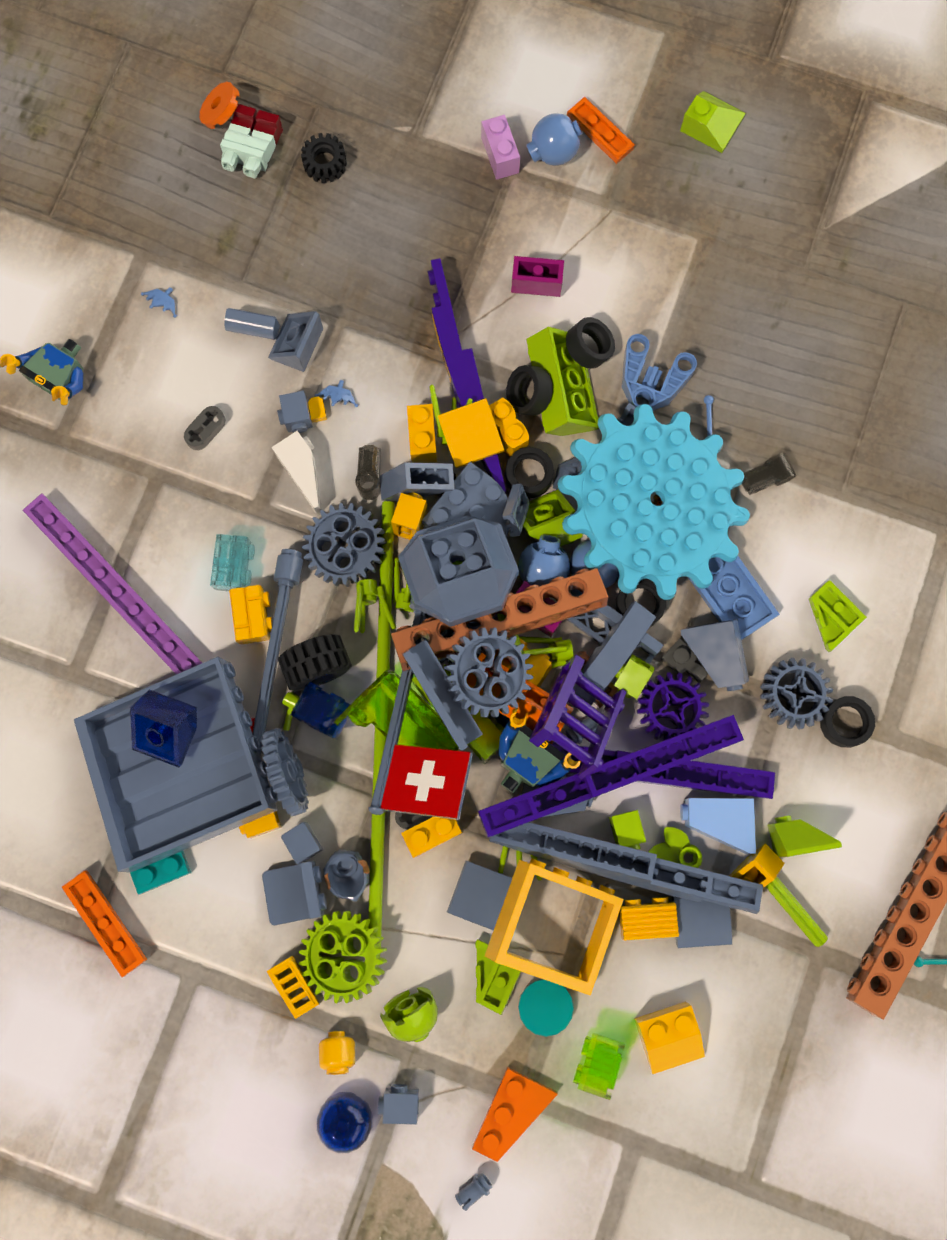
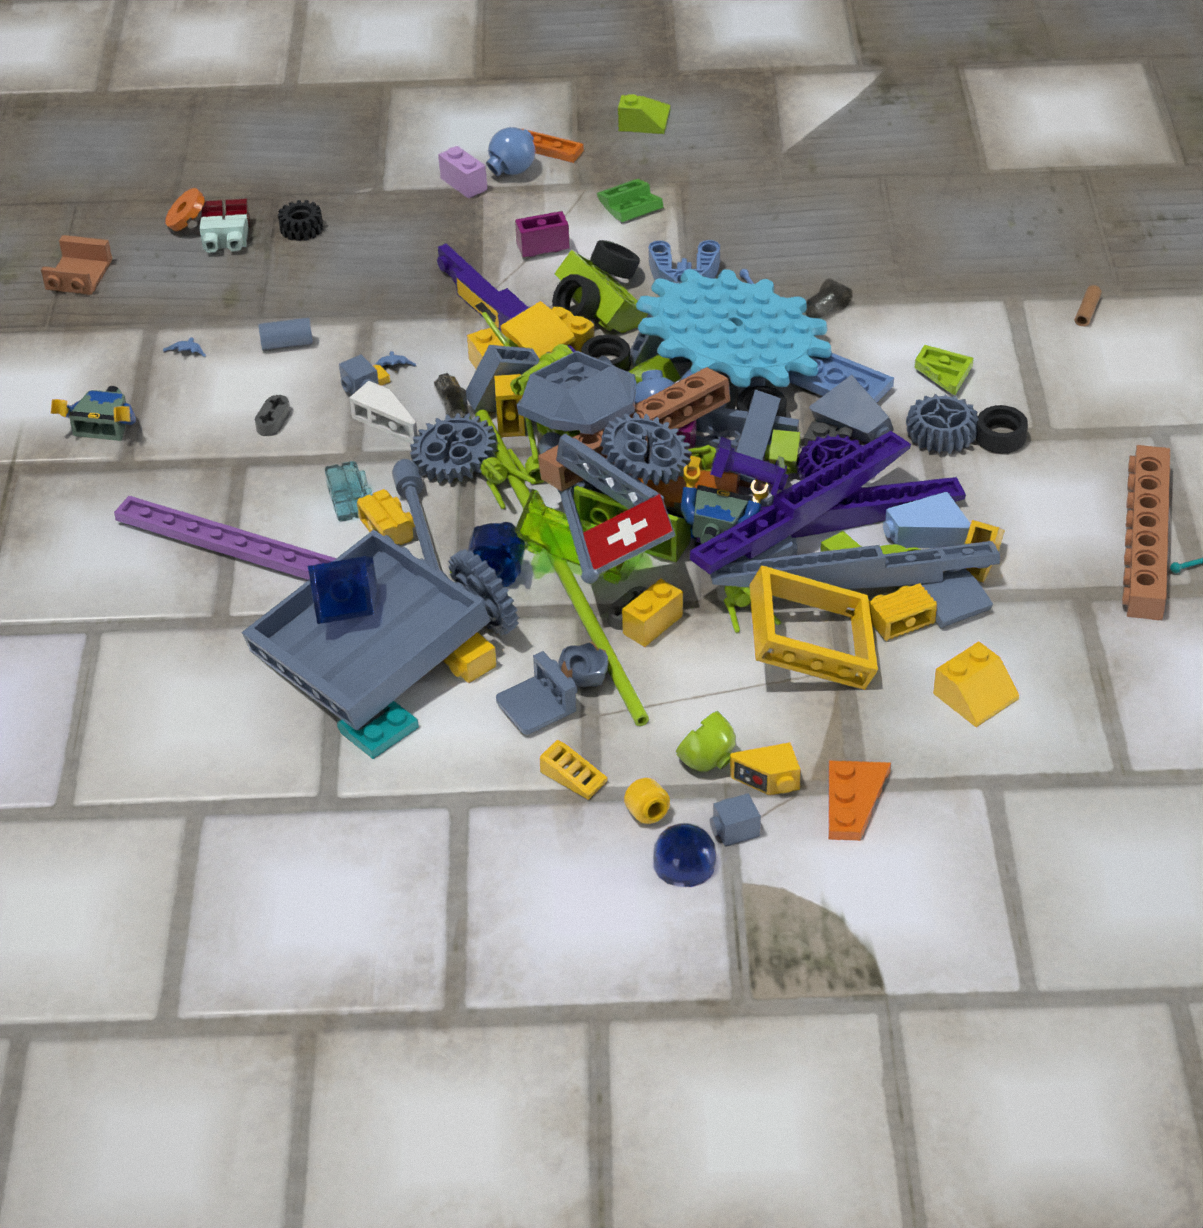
camera: 20 degrees left, 35 degrees down
(101, 147) = (80, 267): none -> nougat panel
(104, 923) = (346, 783): orange plate -> none
(297, 340) = (335, 333): sand blue slope -> none
(301, 843) = (521, 652): sand blue panel -> none
(314, 661) = (464, 509): black tyre -> none
(344, 930) = (613, 725): lime gear -> none
(453, 1061) = (767, 768): none -> yellow slope
(454, 500) = (519, 384): none -> lime pin
(474, 1191) = (853, 858): sand blue pin -> none
(479, 895) = (727, 645): sand blue slope -> none
(494, 981) = (776, 697): lime wing -> none
(545, 1007) = (840, 707): teal tile -> none
(600, 1065) = (917, 717): clear neon green brick -> none
(645, 247) = (630, 200): none -> bright green slope
(797, 912) = (1039, 567): lime axle -> none
(798, 837) = (1013, 508): lime slope -> none

